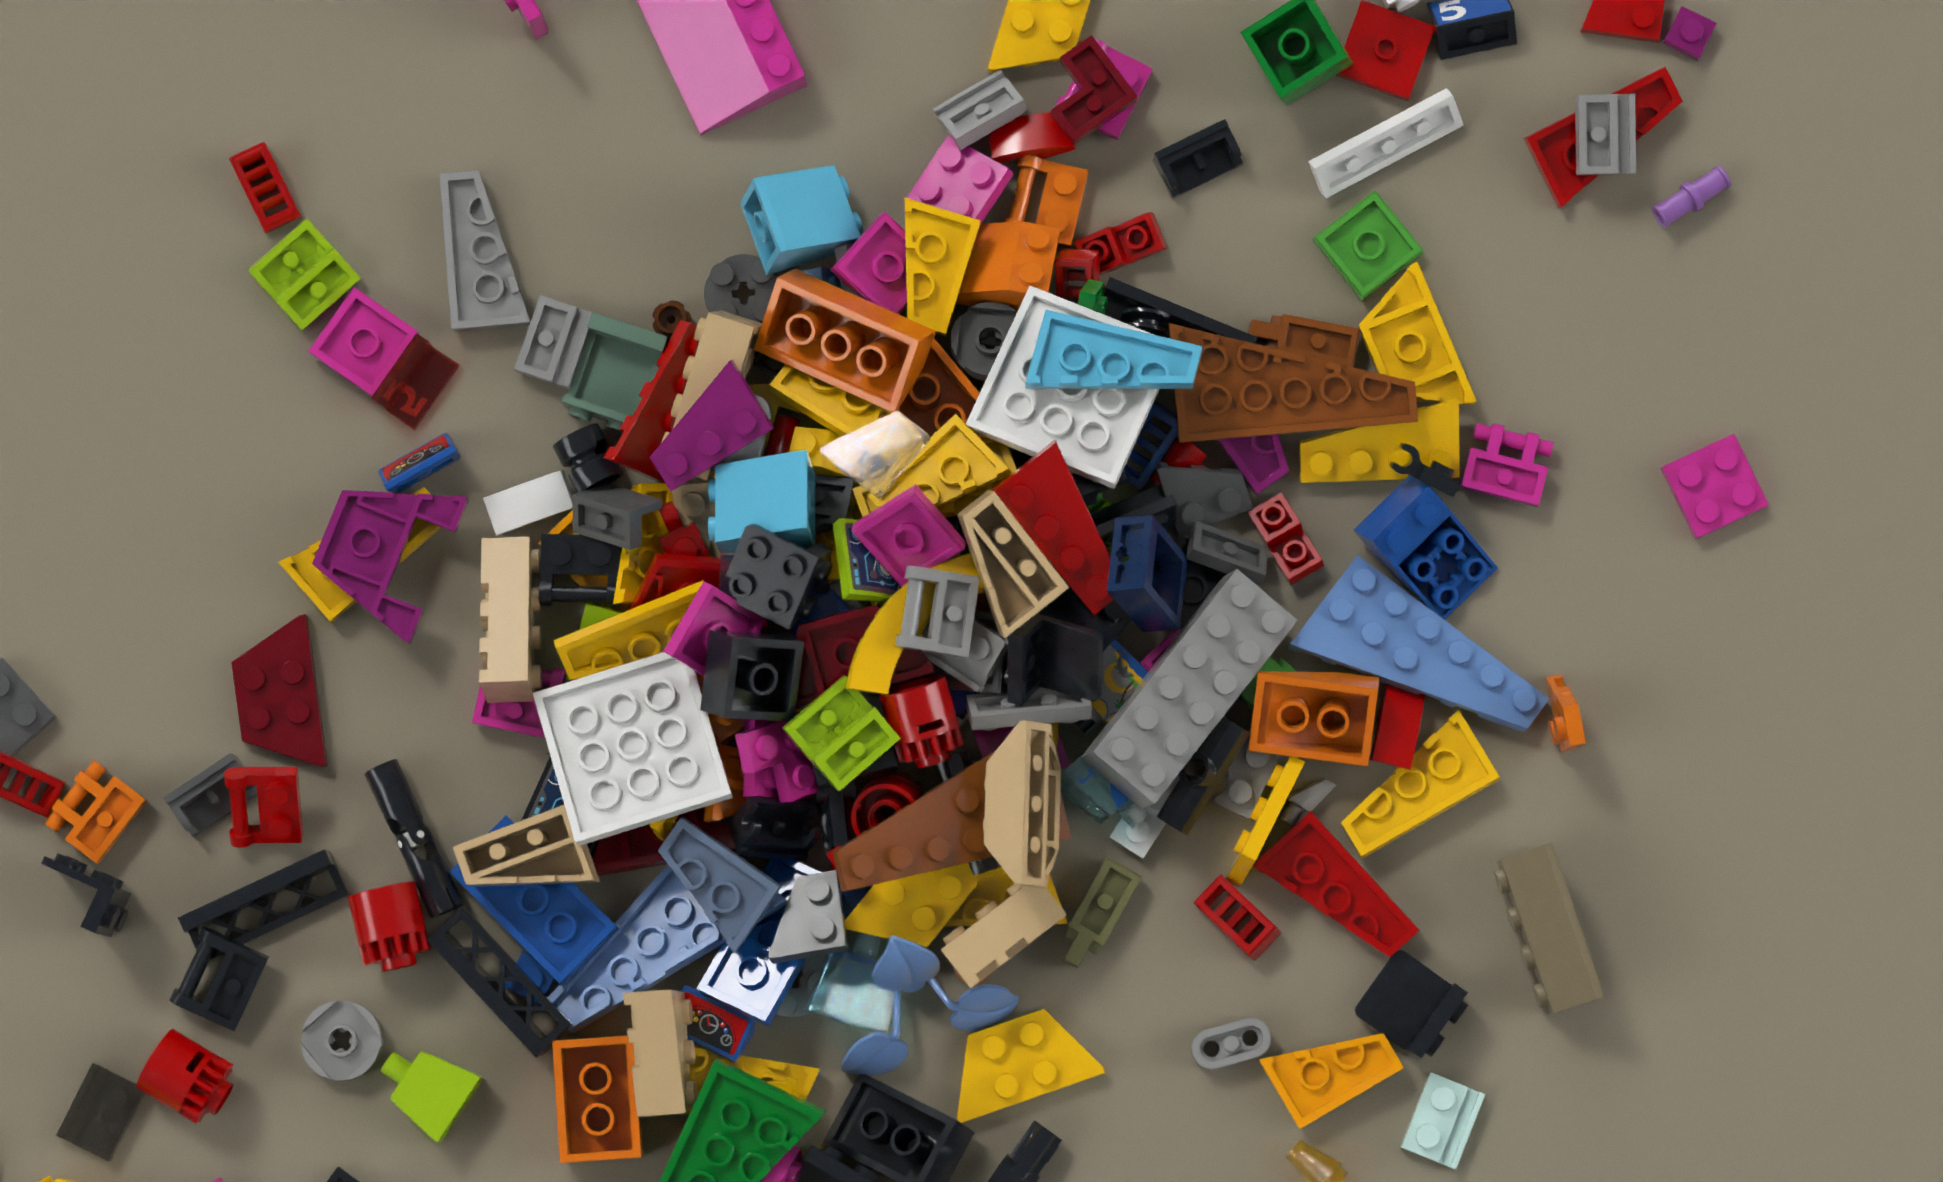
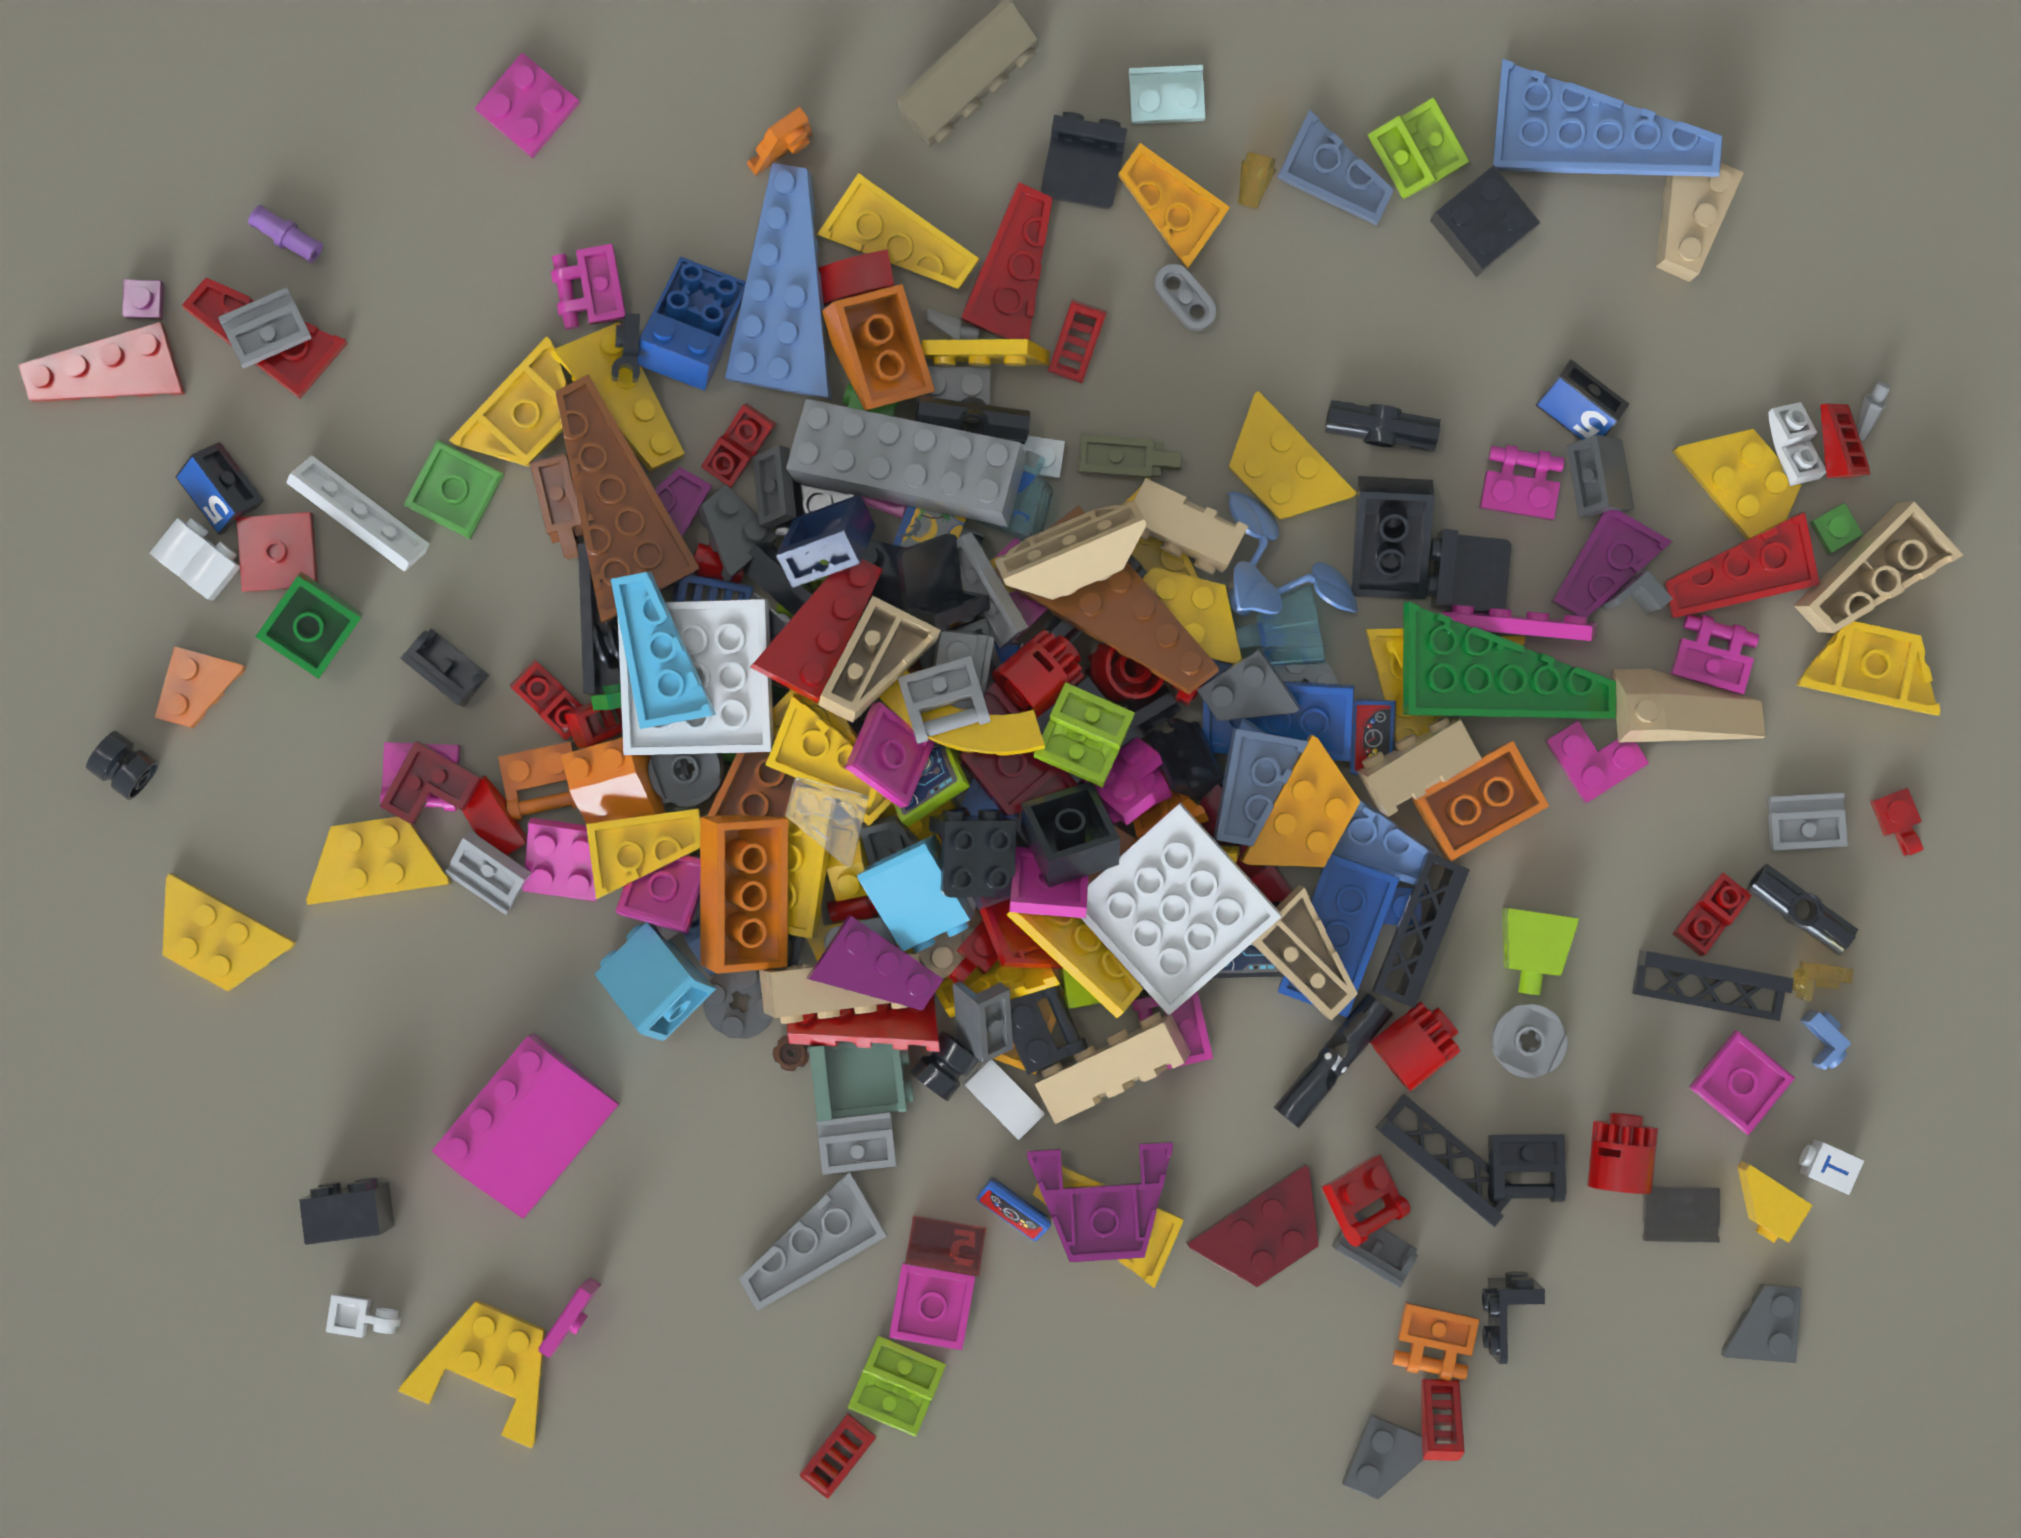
camera: 120 degrees left, 5 degrees up
(664, 919) = (1306, 814): none -> light orange wing

